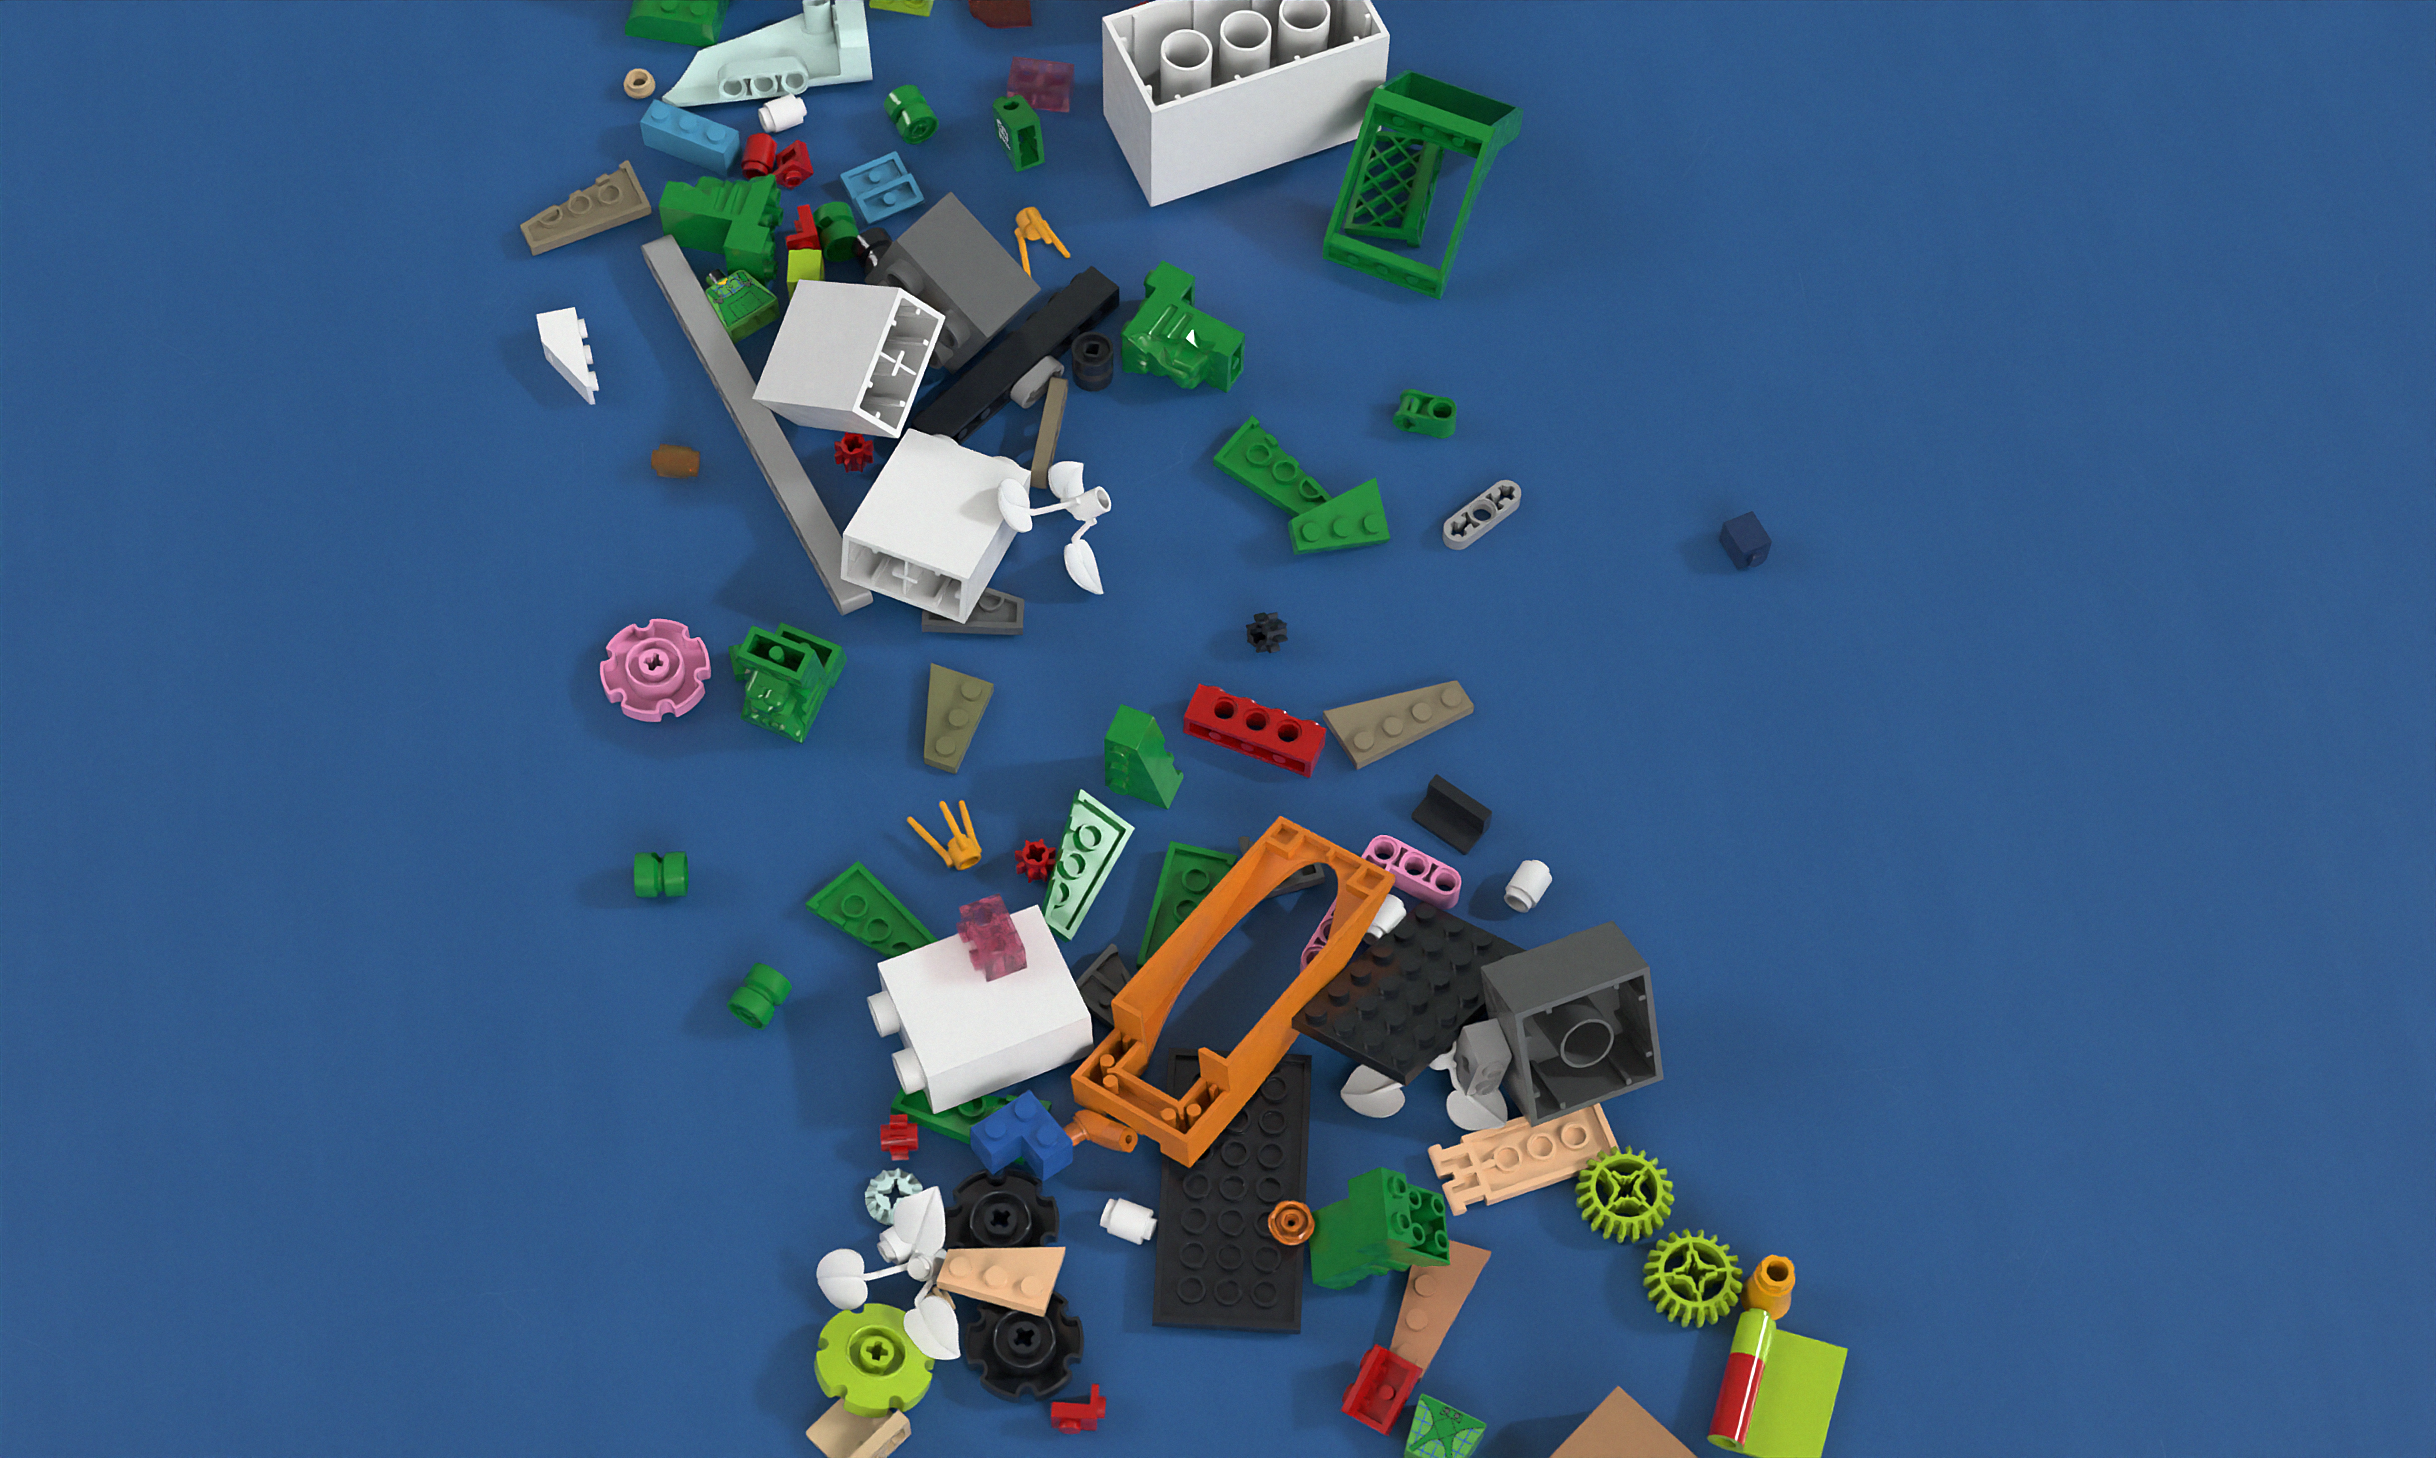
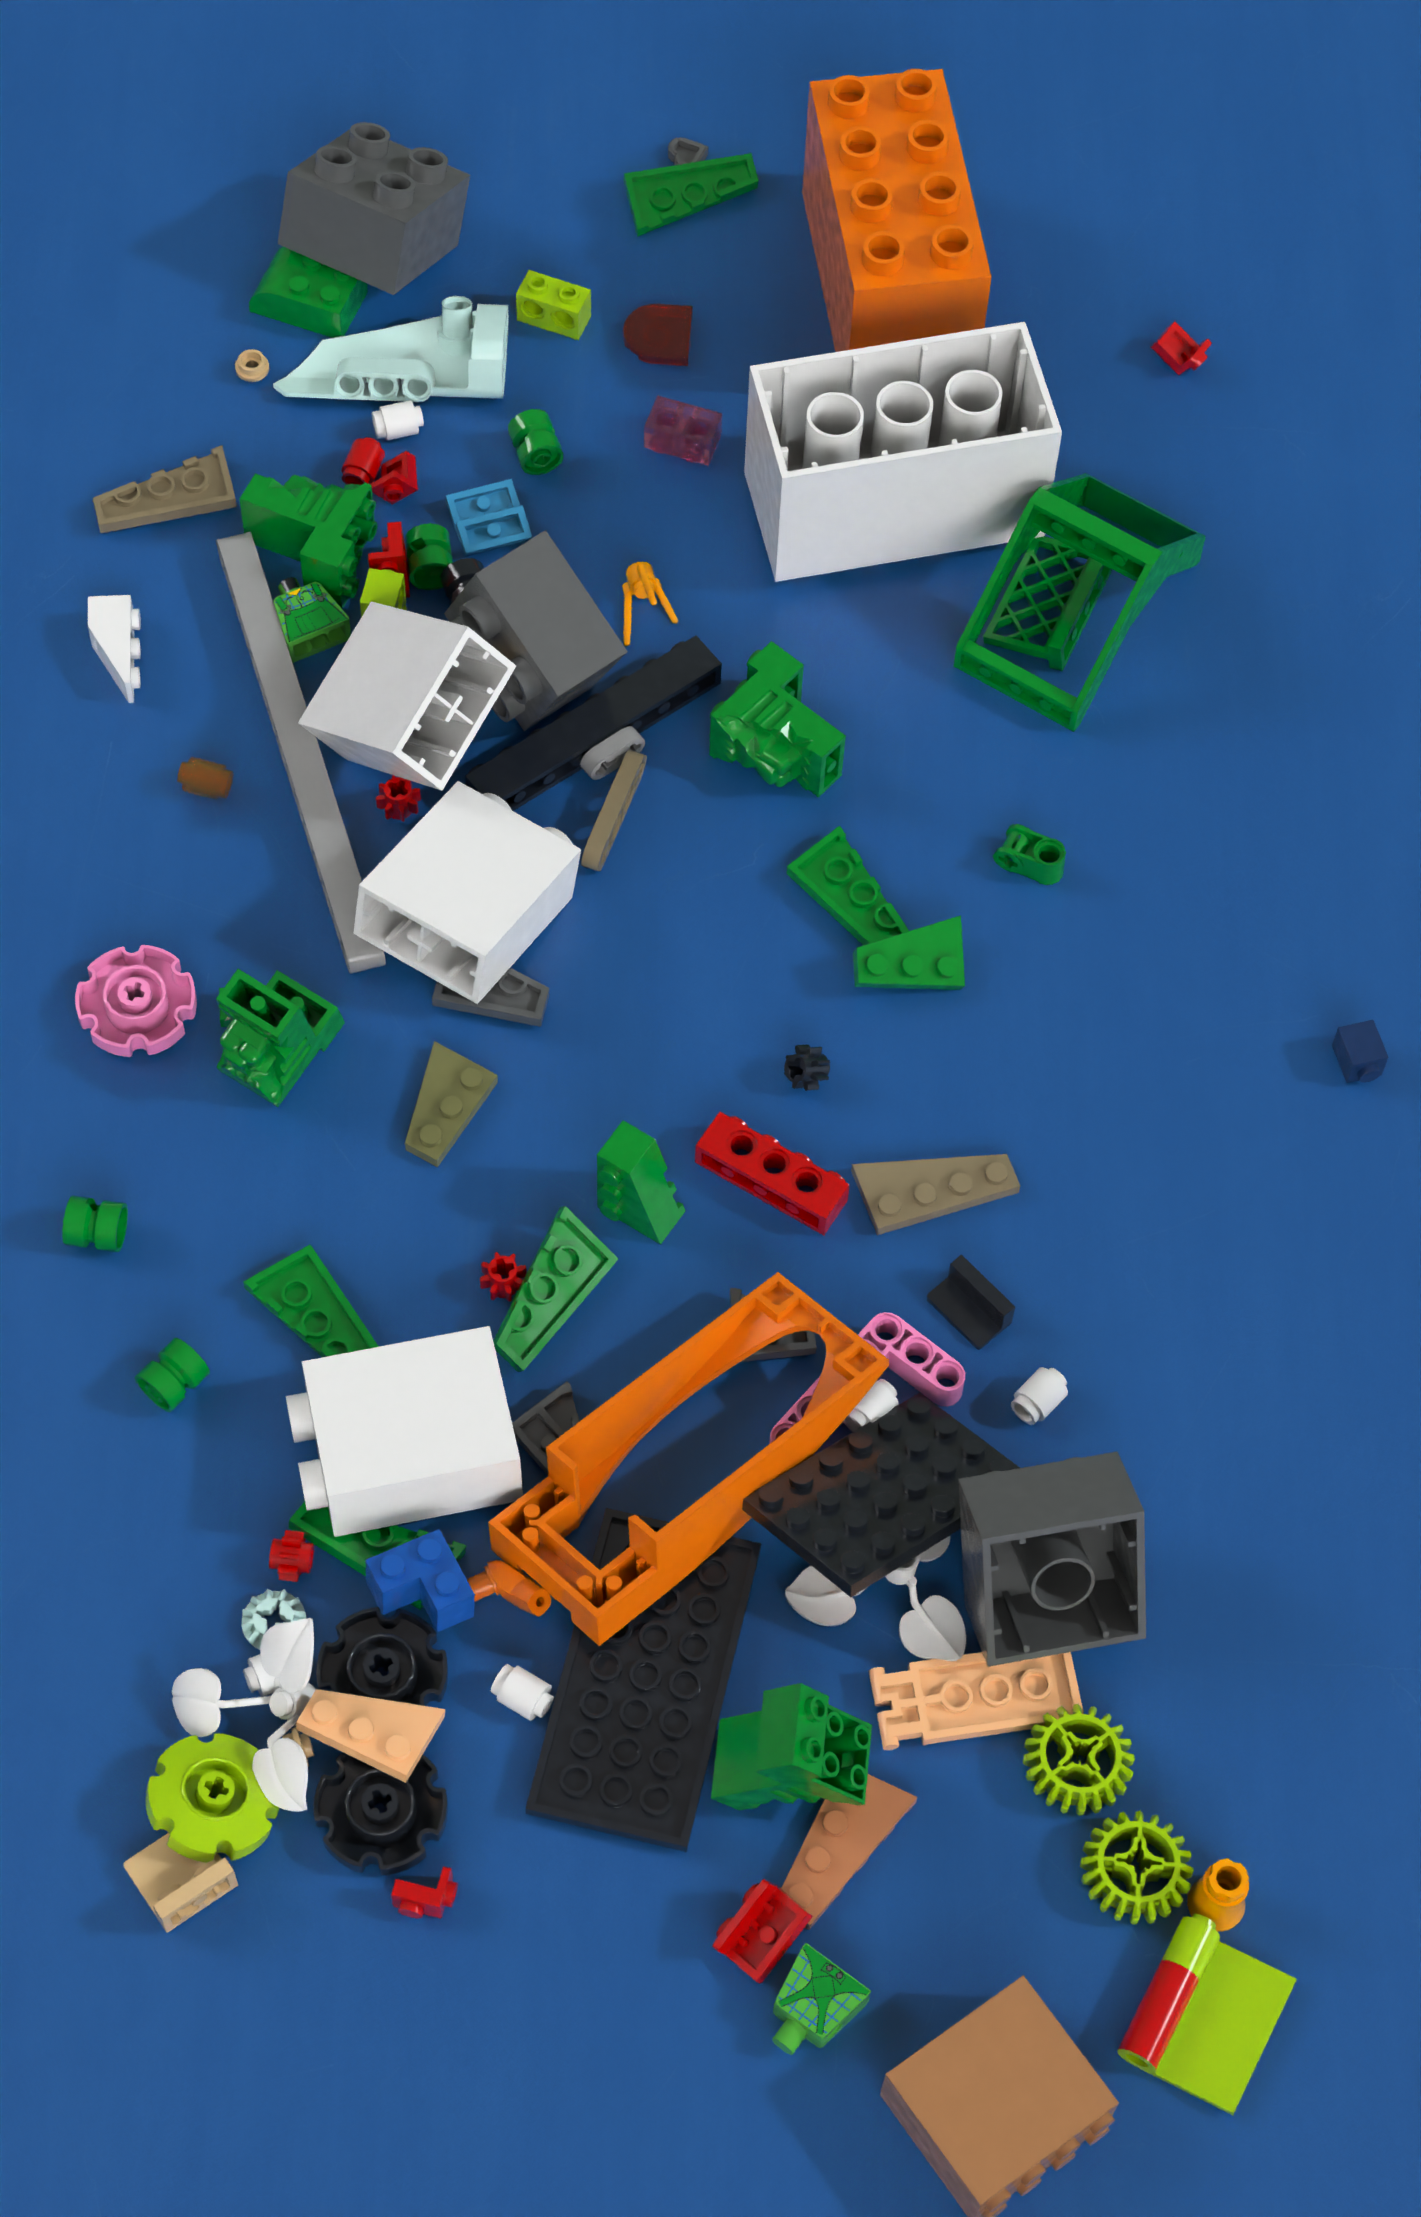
camera: 10 degrees right, 0 degrees up
(690, 137) = (294, 431): dark azure brick -> none
(962, 851) = (426, 1252): light orange plant -> none
(996, 936) = (429, 1354): clear pink brick -> none
(1014, 118) = (642, 463): green torso -> none
(1066, 484) = (621, 870): white plant -> none
(1092, 361) = (676, 740): black wheel -> none
(1183, 884) = (661, 1325): green wing -> none
(1291, 1211) = (699, 1714): orange plate -> none
(1476, 527) = (1078, 961): light grey beam -> none
(1481, 1057) = (945, 1579): light grey brick -> none

